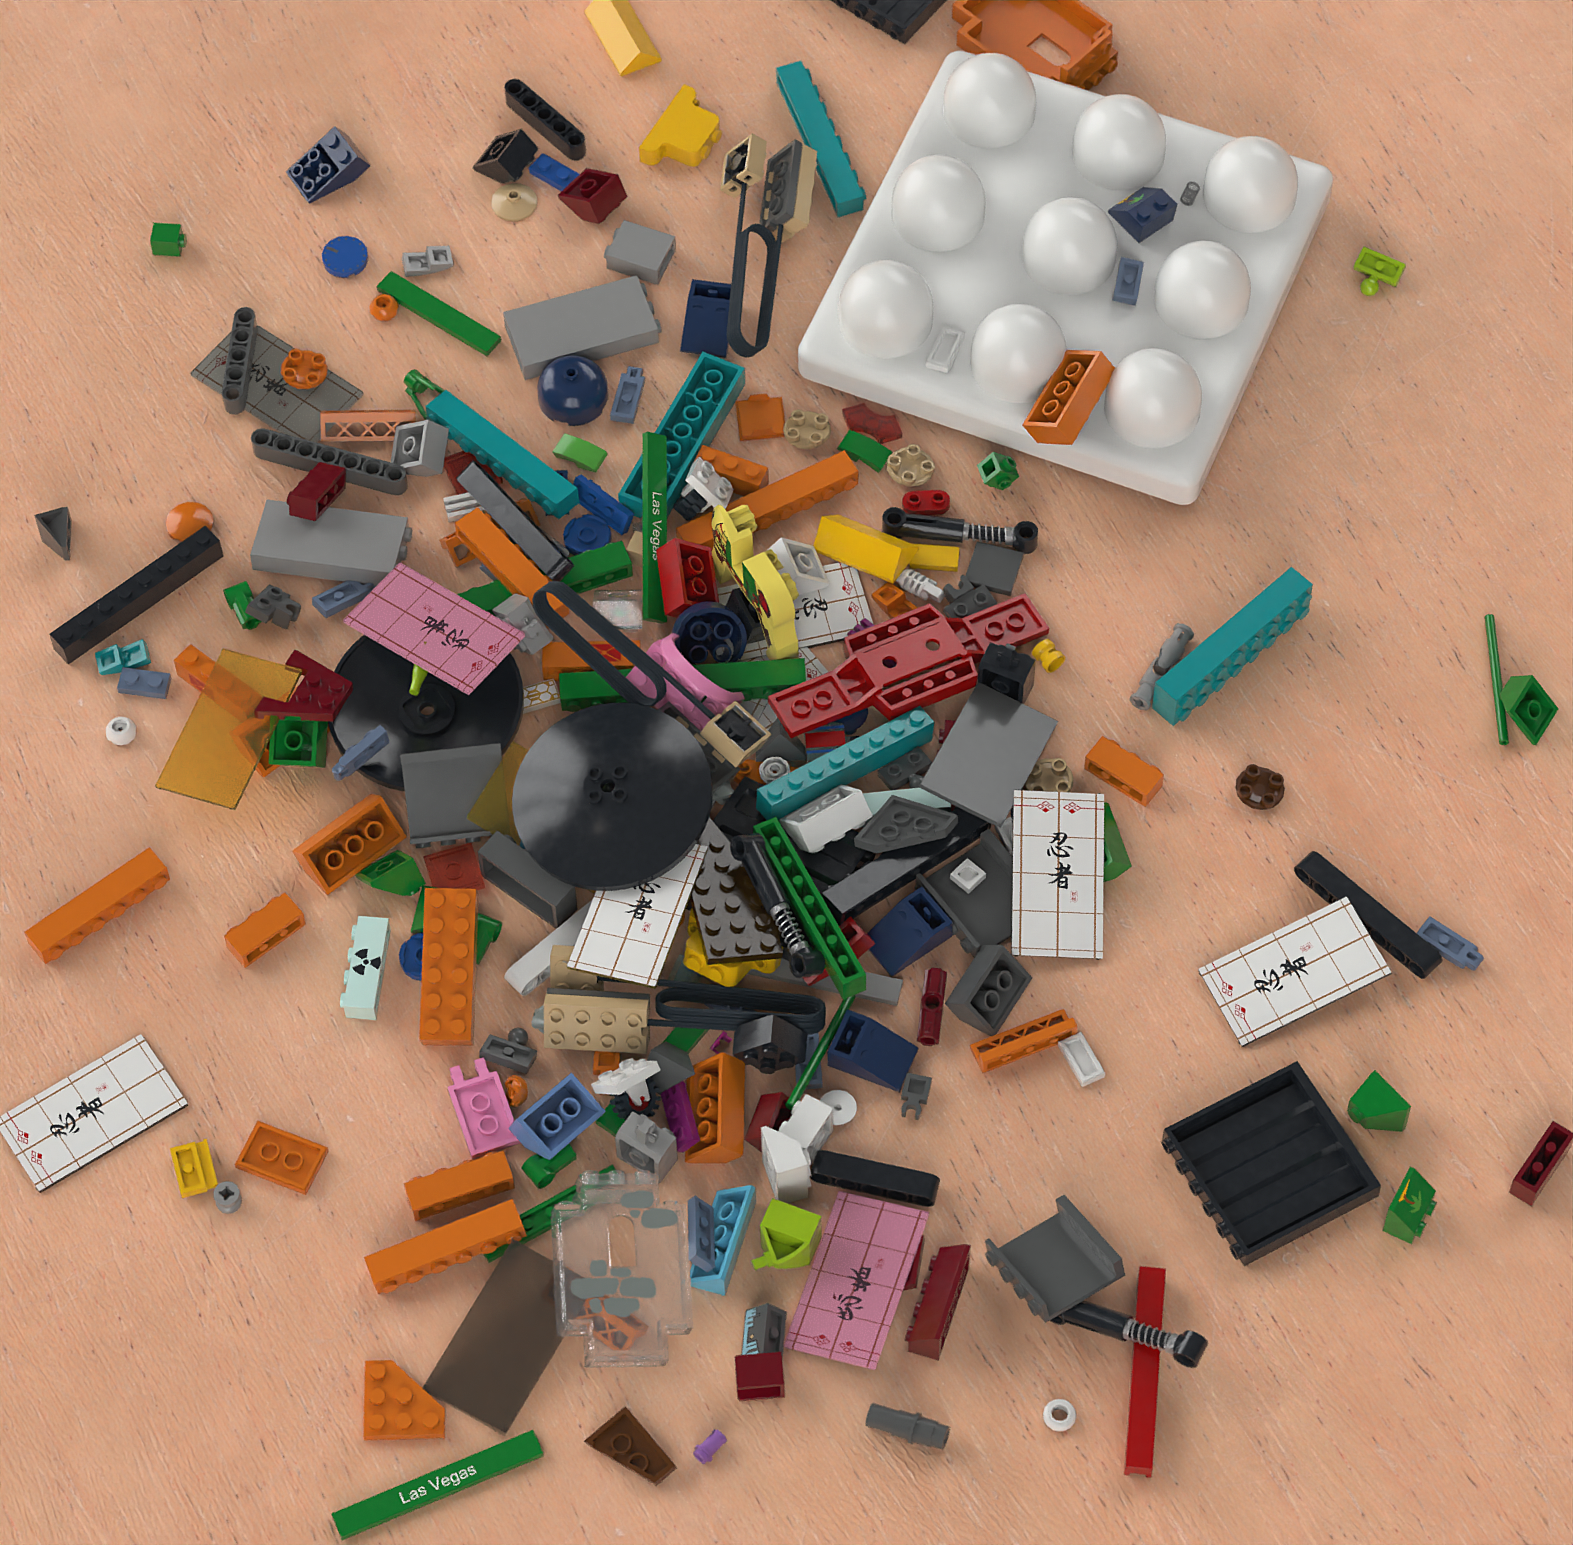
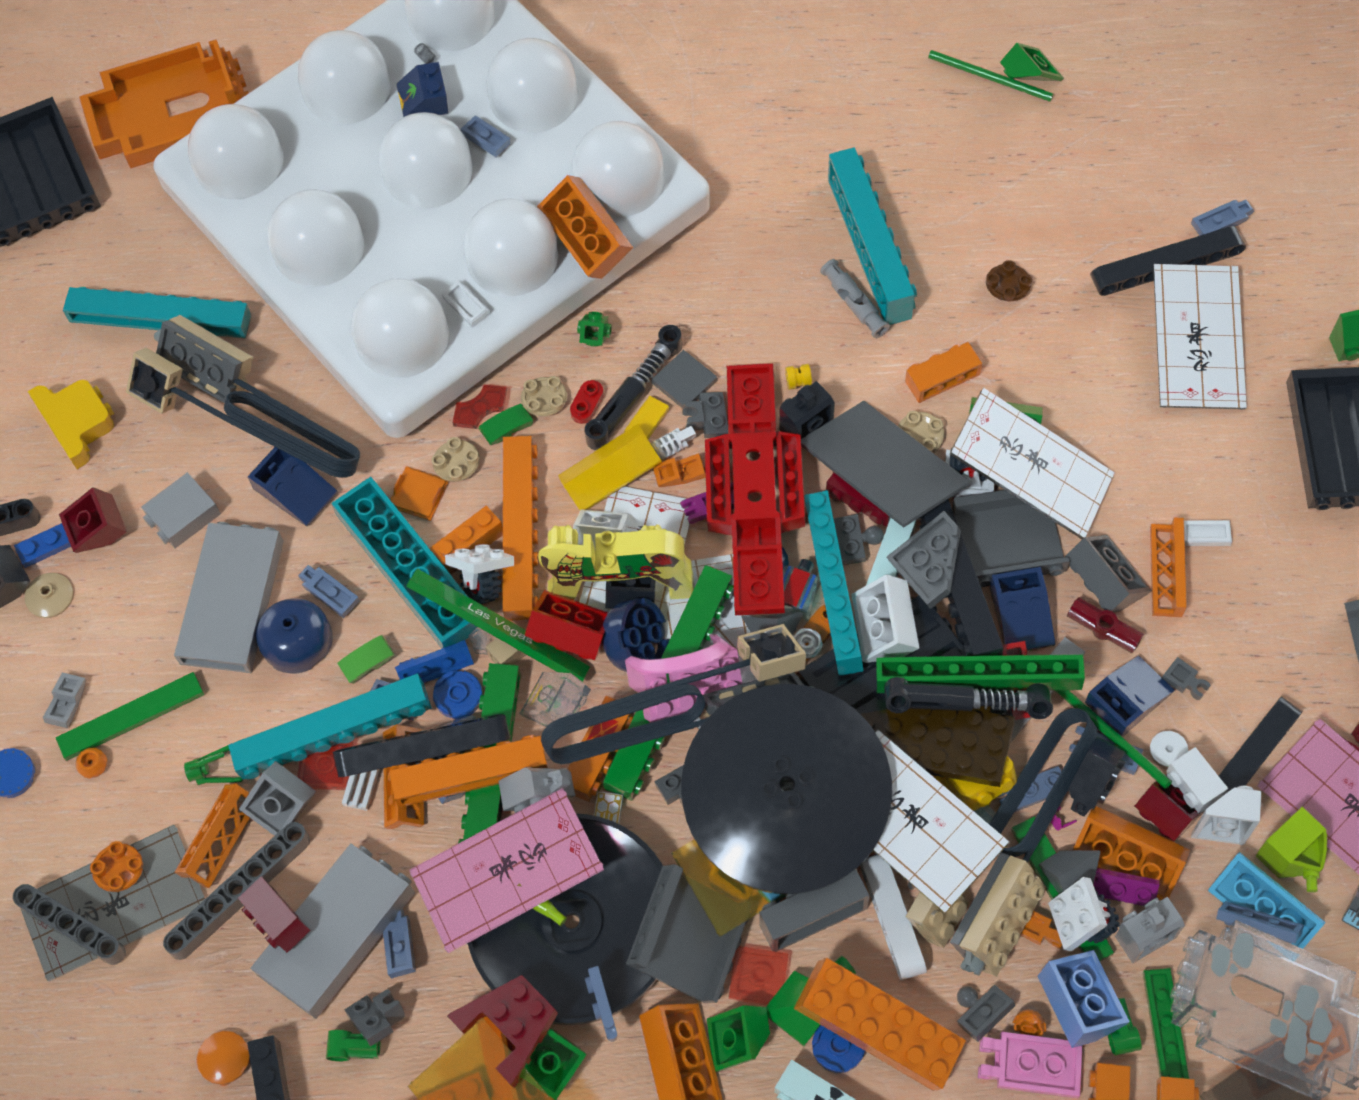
camera: 60 degrees left, 5 degrees up
(967, 875) = (988, 537): white plate -> none

